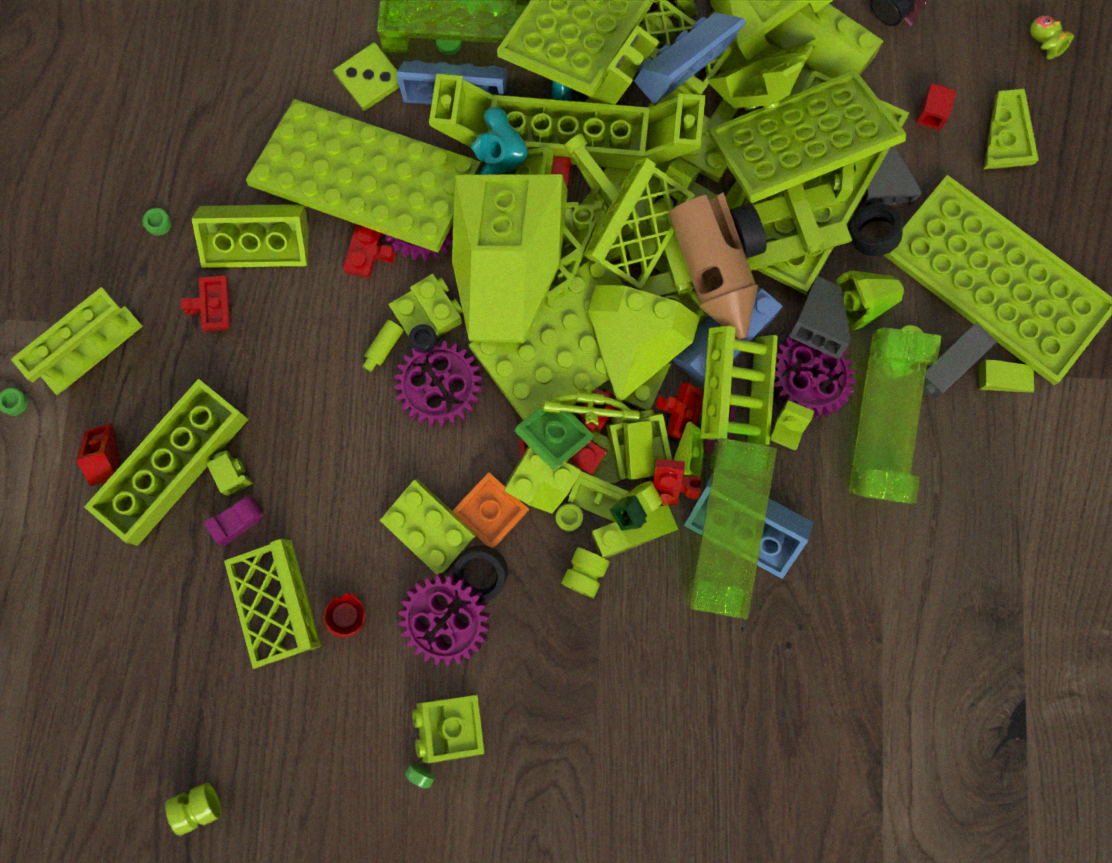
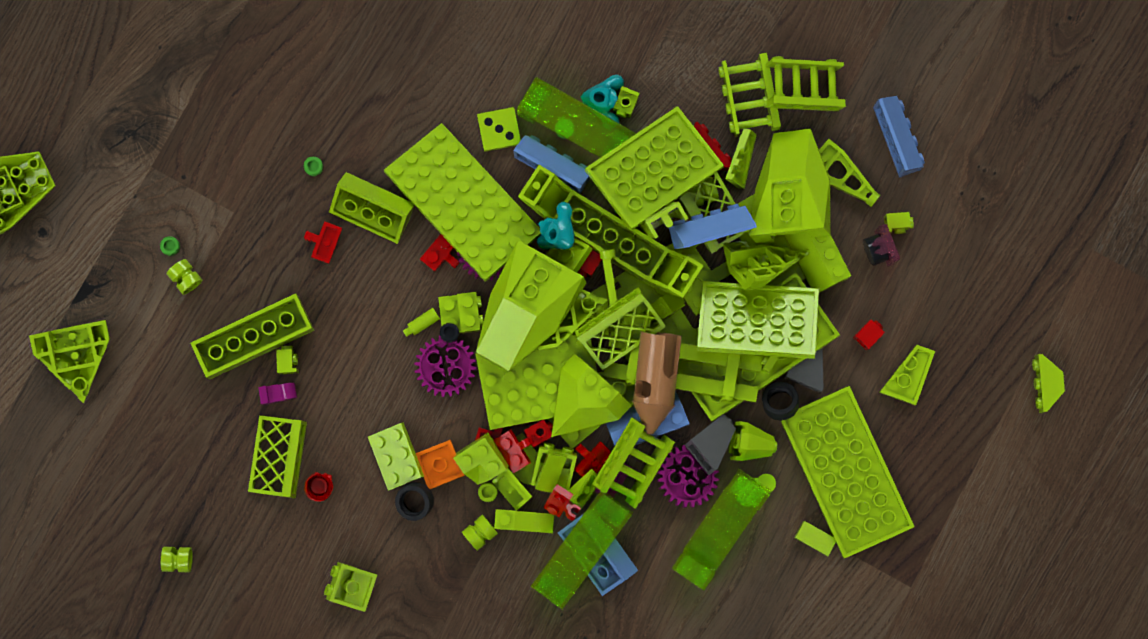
camera: 25 degrees right, 5 degrees up
(44, 429) = (183, 275): none -> lime wheel
(77, 342) = (230, 232): lime fence -> none
(99, 454) = (211, 309): red slope -> none
(419, 775) = (320, 606): bright green tile -> none
(424, 602) = (386, 535): magenta gear -> none
(554, 436) = (500, 438): bright green plate -> none
(590, 413) = (529, 434): lime piece -> none
(638, 504) = (530, 507): leg -> none
(749, 229) = (687, 366): black tyre -> none
(790, 425) = (652, 504): lime slope -> none
(957, 360) = (781, 513): dark grey slope -> none
(1050, 33) = (975, 319): lime animal -> none

